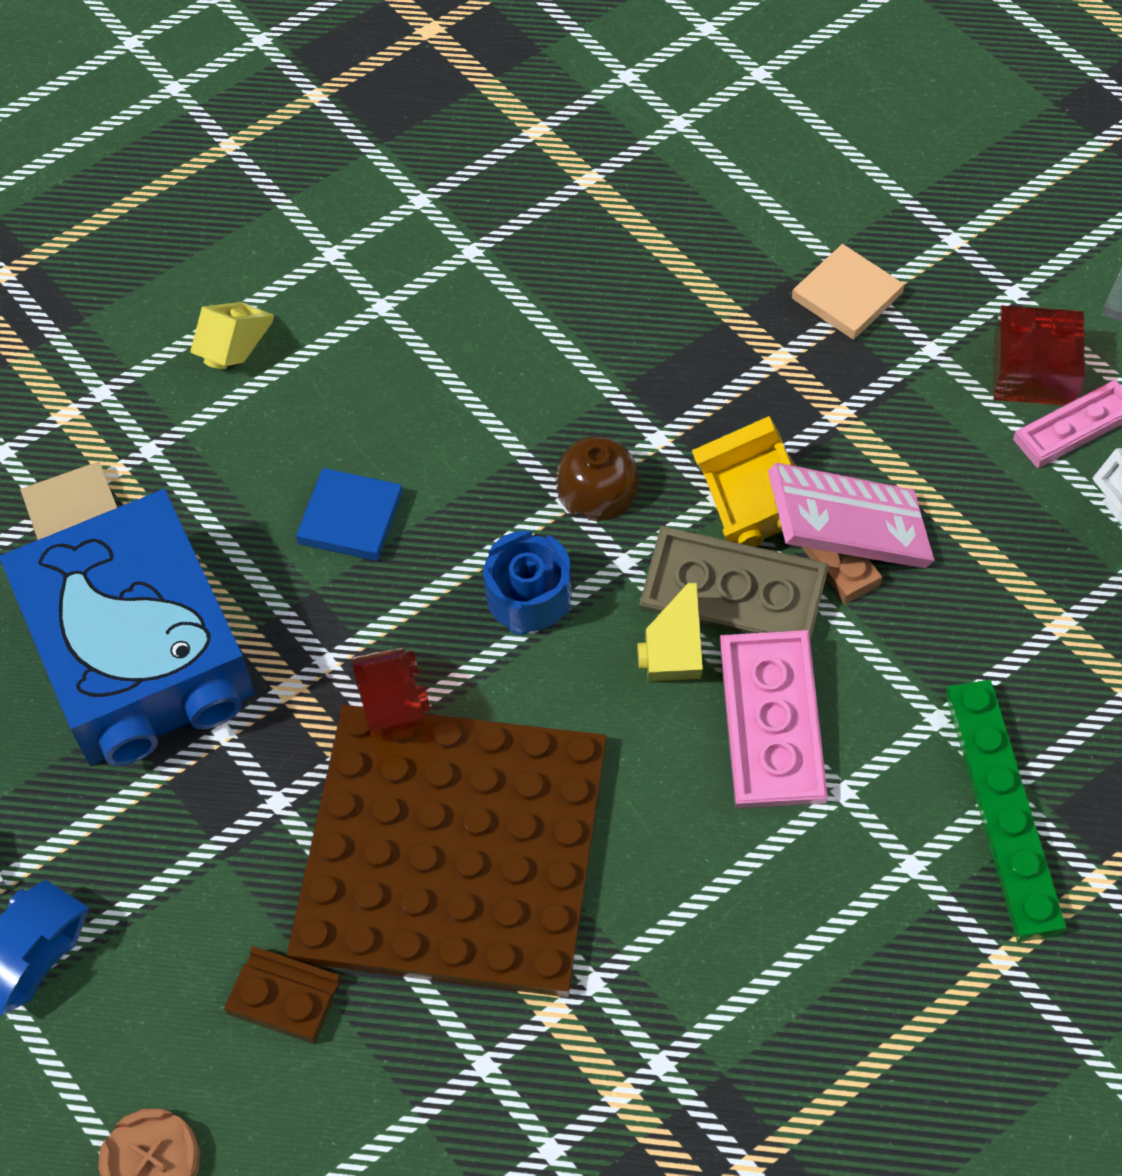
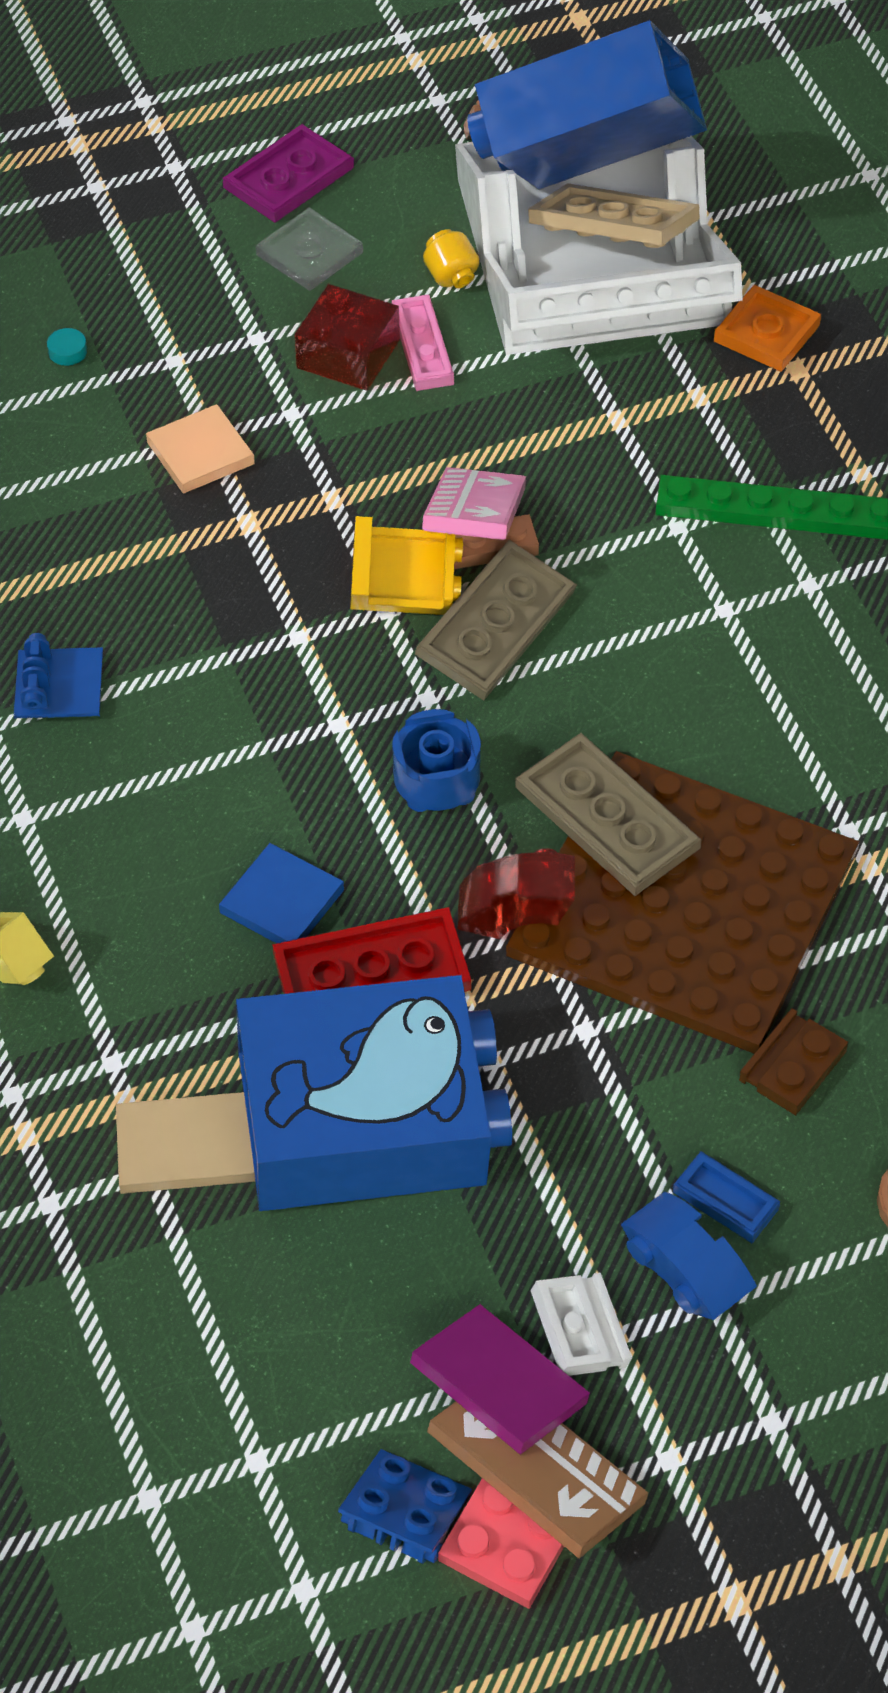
camera: 75 degrees left, 5 degrees down
(113, 971) = (726, 1197): none -> blue tile
(288, 604) = (374, 953): none -> red plate
(511, 744) = (608, 814): none -> dark tan tile
(529, 276) = (57, 680): none -> blue hinge
(597, 478) = (331, 687): reddish brown cylinder -> none
(674, 640) = (541, 667): light yellow slope -> none
(772, 719) = (643, 629): bright pink tile -> none
(924, 155) = (67, 346): none -> teal tile

